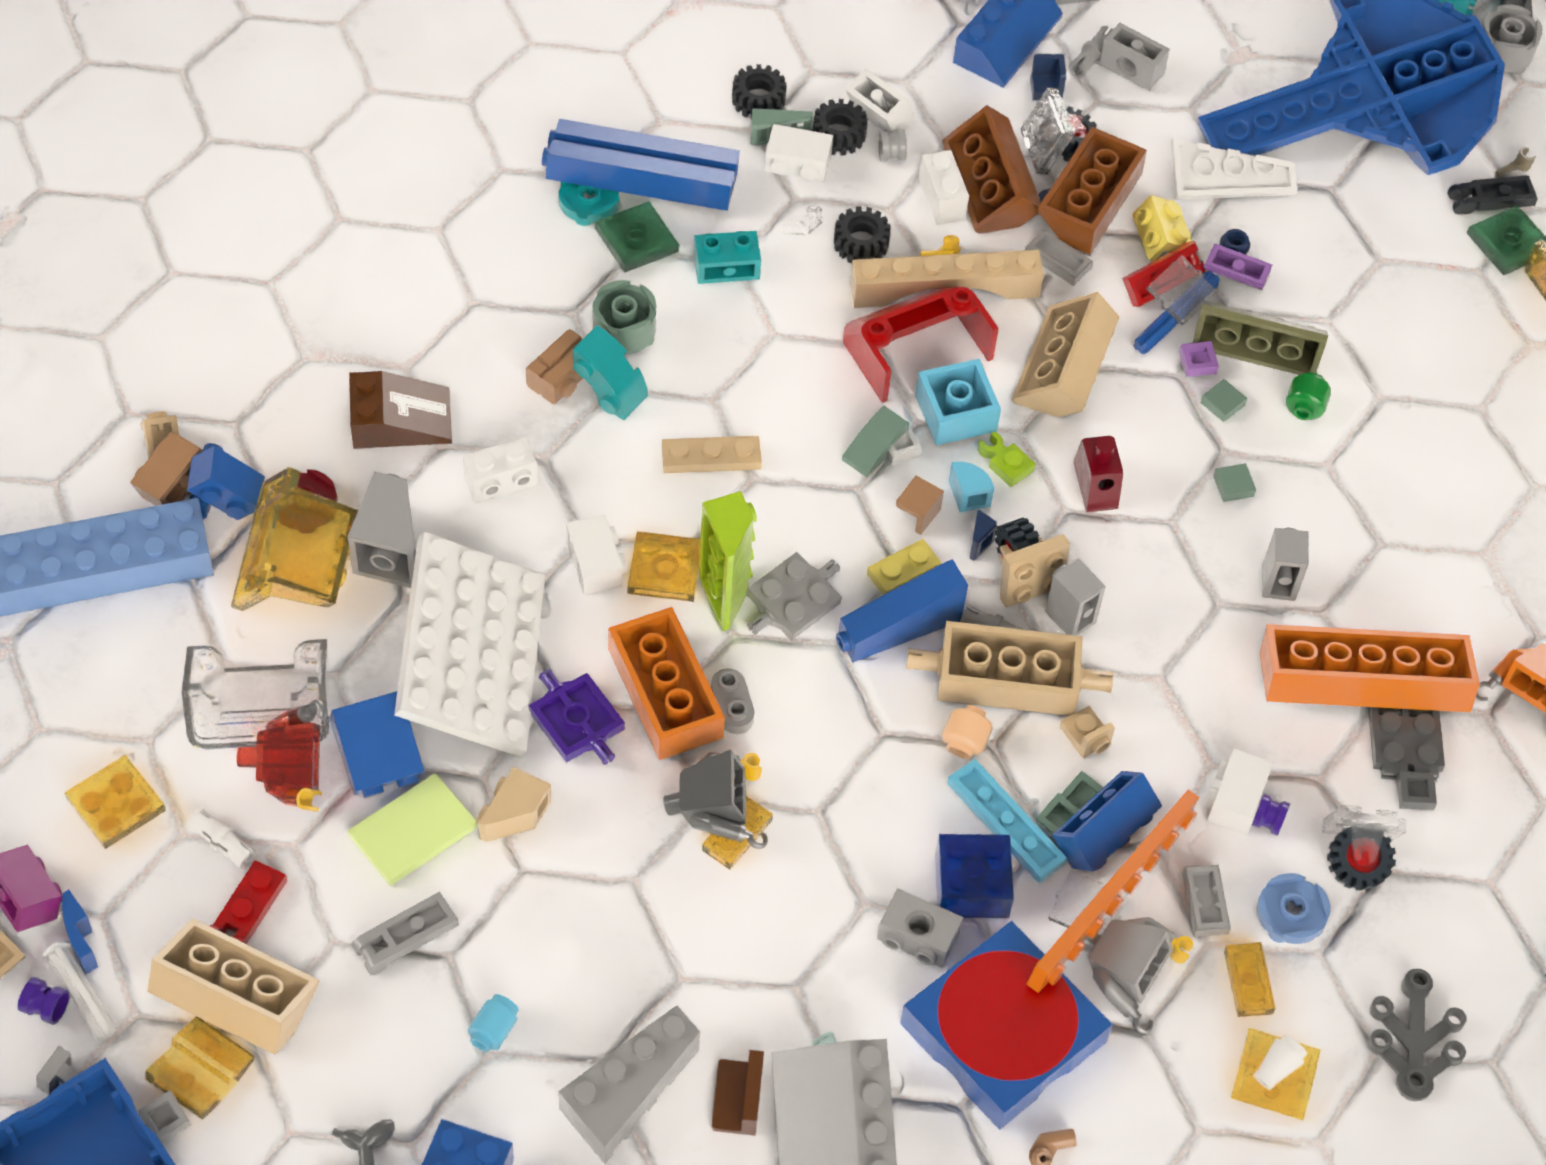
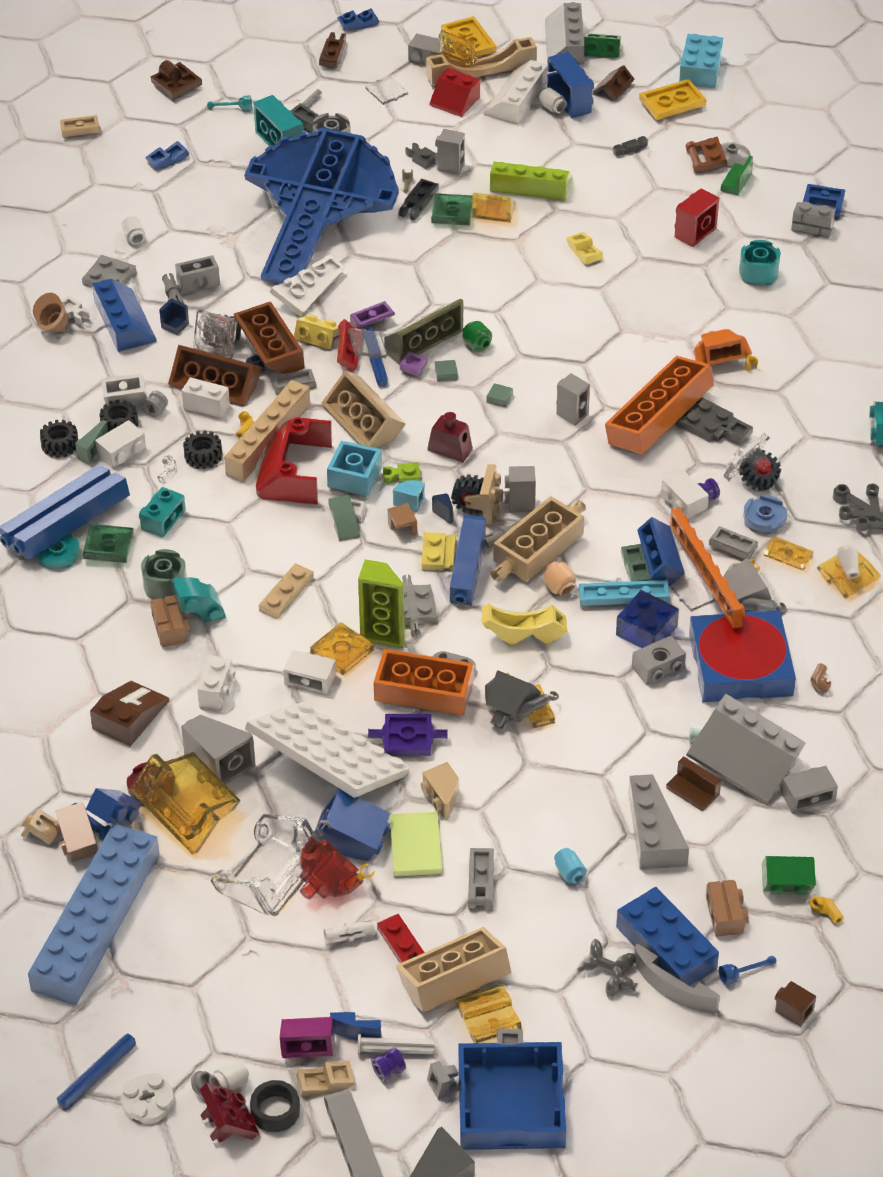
camera: 50 degrees left, 10 degrees down
(115, 801) = (281, 970): clear yellow plate -> none
(840, 731) = (513, 627): none -> light yellow arch
(1087, 732) = (598, 534): tan bracket -> none
(1236, 240) = (352, 307): dark blue plate -> none

